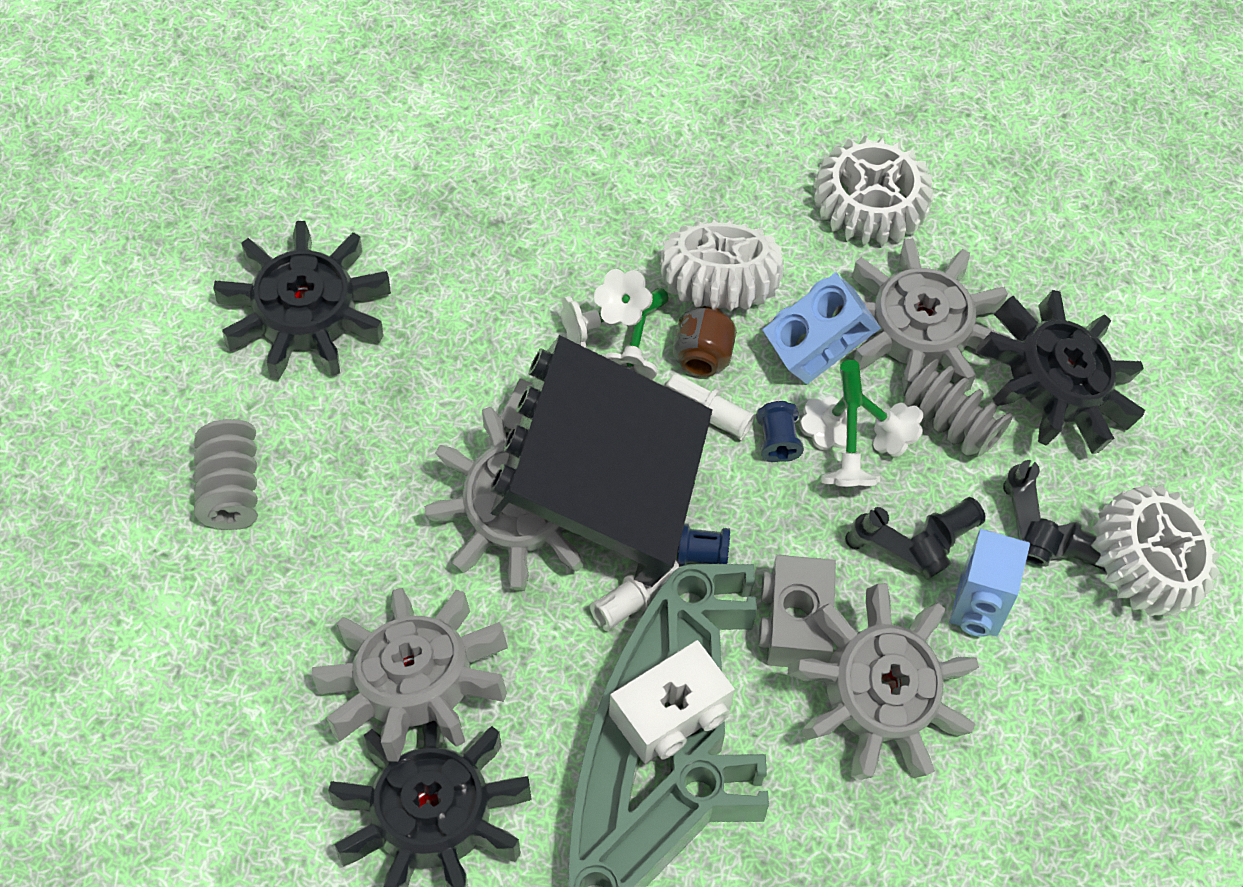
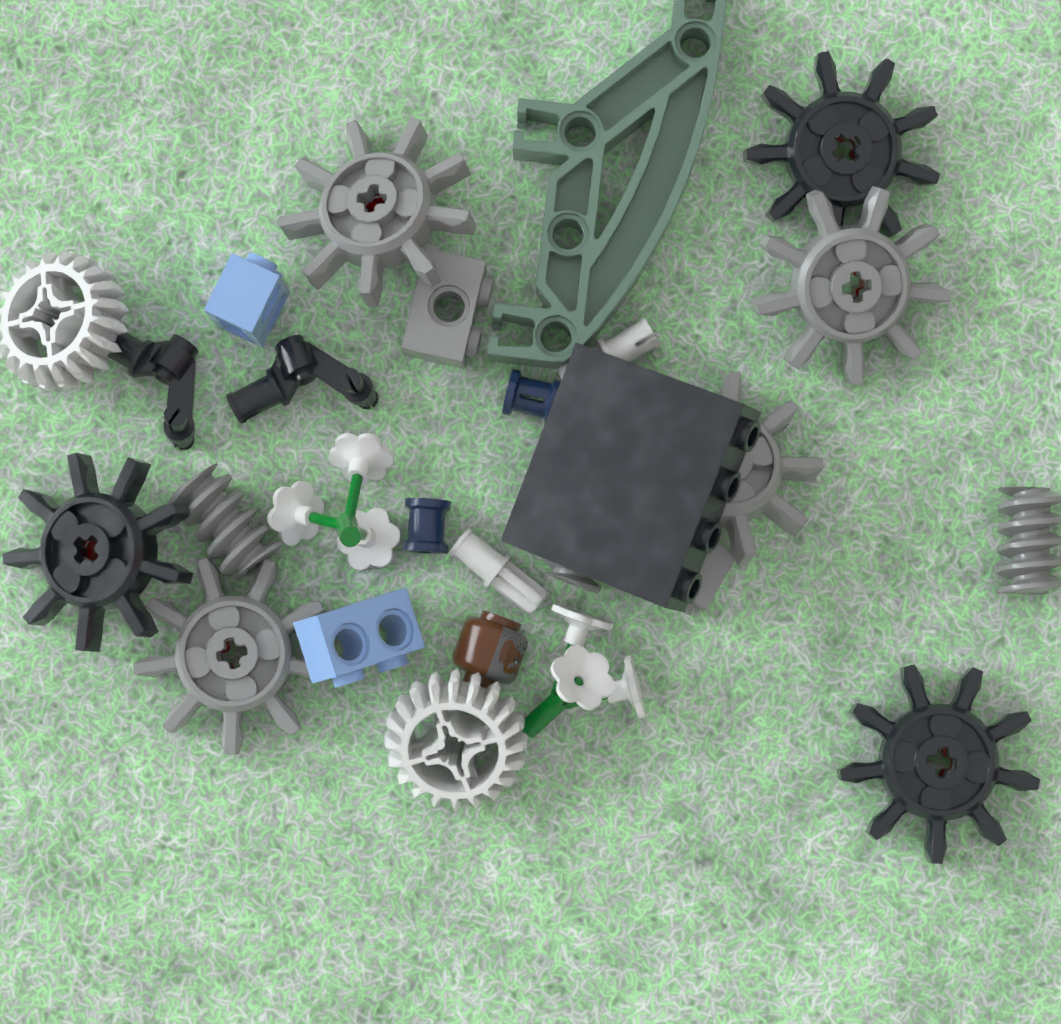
camera: 165 degrees left, 25 degrees up
(684, 679) = (583, 221): white brick -> none
(875, 203) = (268, 859): white gear -> none

